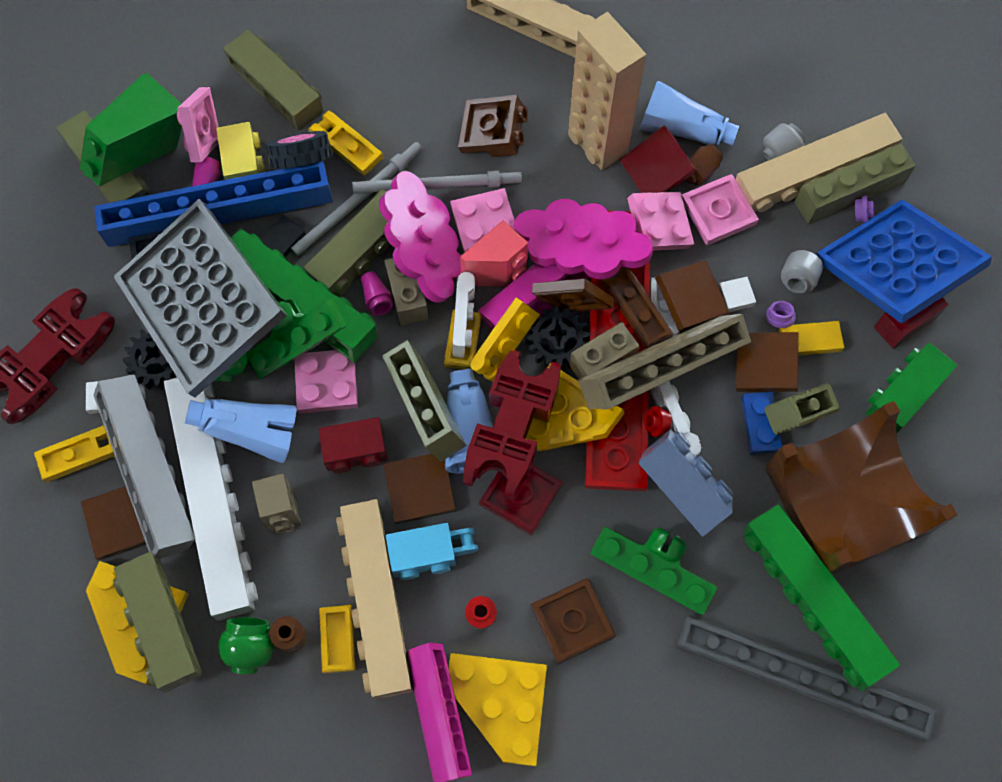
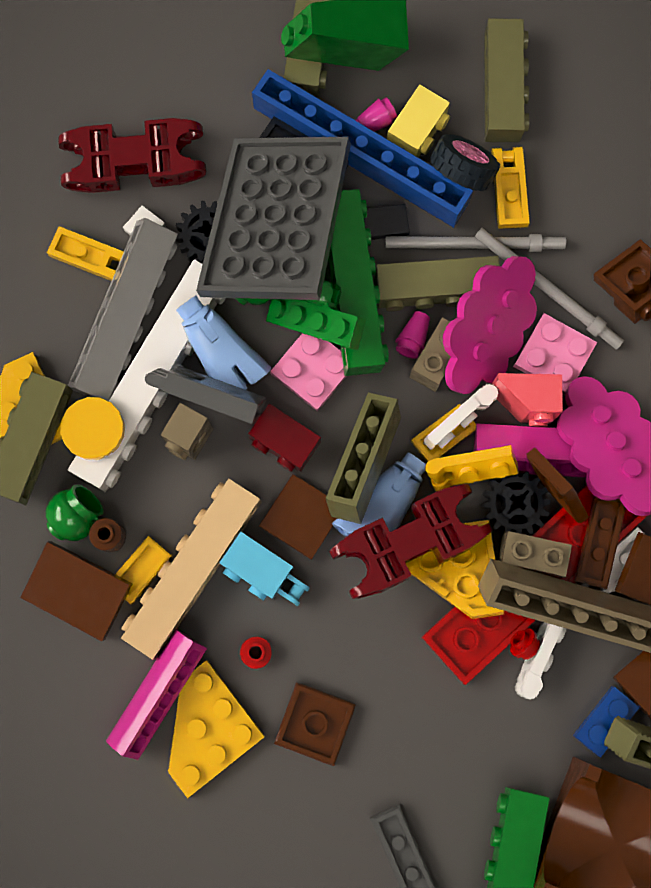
camera: 45 degrees right, 10 degrees up
(112, 523) = (65, 331): reddish brown tile -> none
(199, 124) = (407, 69): bright pink plate -> none
(201, 566) = (92, 428): none -> yellow tile
(265, 458) = (208, 392): none -> dark grey hinge
(303, 700) = (76, 590): none -> reddish brown tile
(529, 505) = (369, 610): dark red tile -> none
(656, 566) = (414, 747): green plate -> none
(687, 481) = (495, 714): sand blue brick -> none

